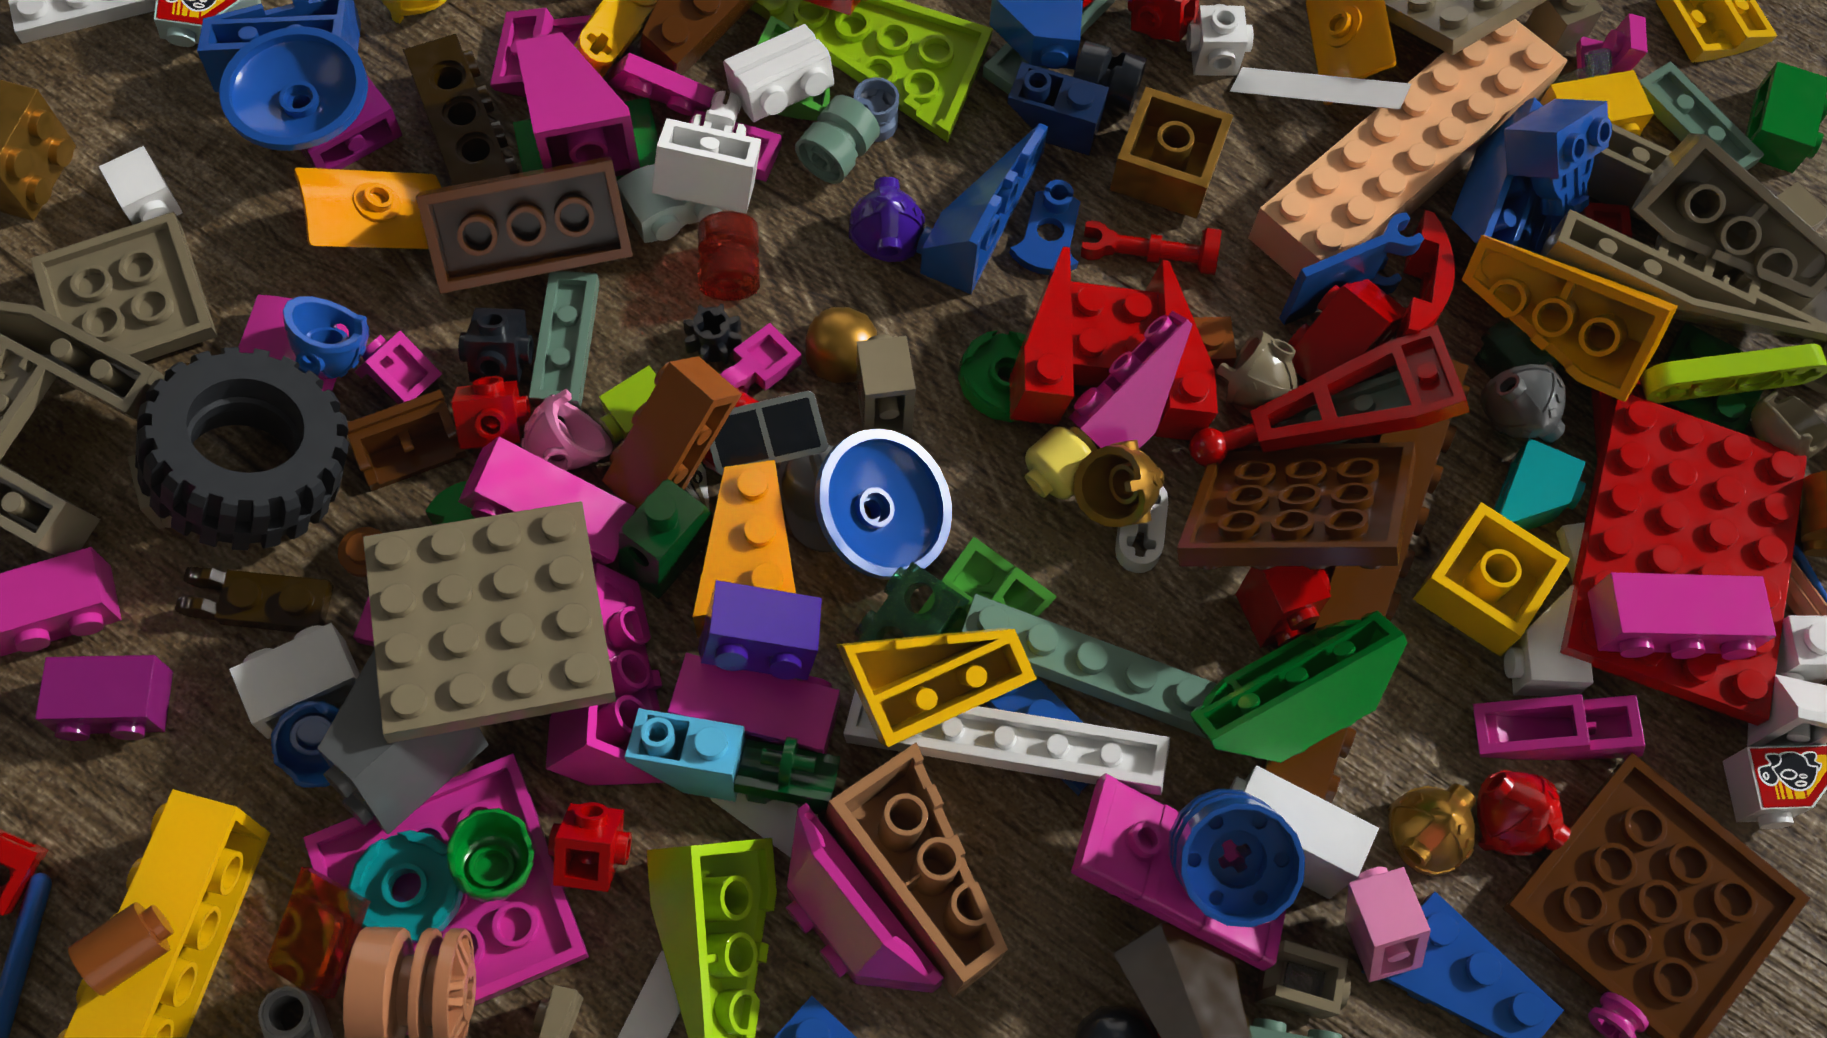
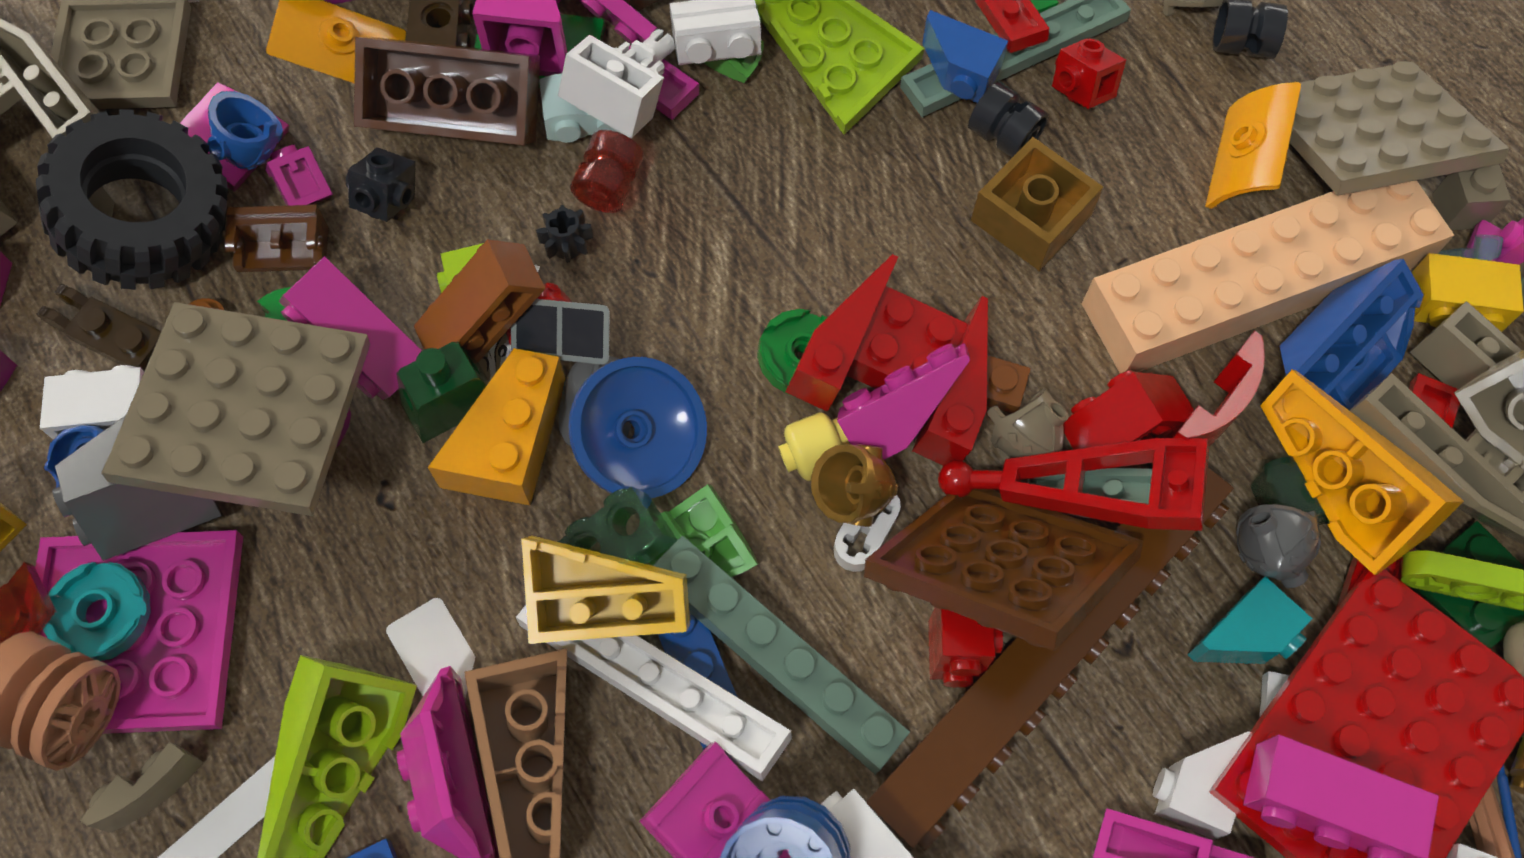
camera: 25 degrees right, 0 degrees up
(489, 411) = (349, 239): red brick -> none
(490, 855) = (166, 609): green hair -> none
(565, 336) = (442, 198): sand green plate -> none
(566, 443) = (396, 285): bright pink helmet -> none
(589, 846) = (256, 634): red brick -> none
(593, 740) = (341, 542): dark pink wedge -> none
(687, 752) = (376, 585): medium azure slope -> none
(759, 702) = (453, 564): dark pink brick -> none
(761, 631) = (471, 501): dark purple slope -> none
(762, 359) = (596, 267): dark pink plate -> none
(786, 774) = (449, 633): dark green hips -> none
(833, 342) = (672, 278): pearl gold hair -> none
(837, 139) = (749, 99): sand green wheel -> none
(883, 101) = (791, 86): sand blue wheel -> none
(885, 384) = (684, 324): dark tan brick -> none
(887, 222) = (757, 187): dark purple helmet -> none
(973, 223) = (834, 210): blue wedge -> none
(1050, 206) = (910, 218): blue piece -> none
(1061, 102) = (952, 133): dark blue slope -> none
(1153, 248) = (987, 284): red piece -> none
(1219, 40) = (1126, 118): white brick -> none
(1303, 689) = (929, 735): green wedge -> none
(1321, 88) = (1204, 189): white sticker -> none
(1351, 266) = (1160, 357): blue flag -> none
(1491, 579) = (1171, 696): yellow brick -> none
(1558, 152) = (1404, 316): blue brick -> none

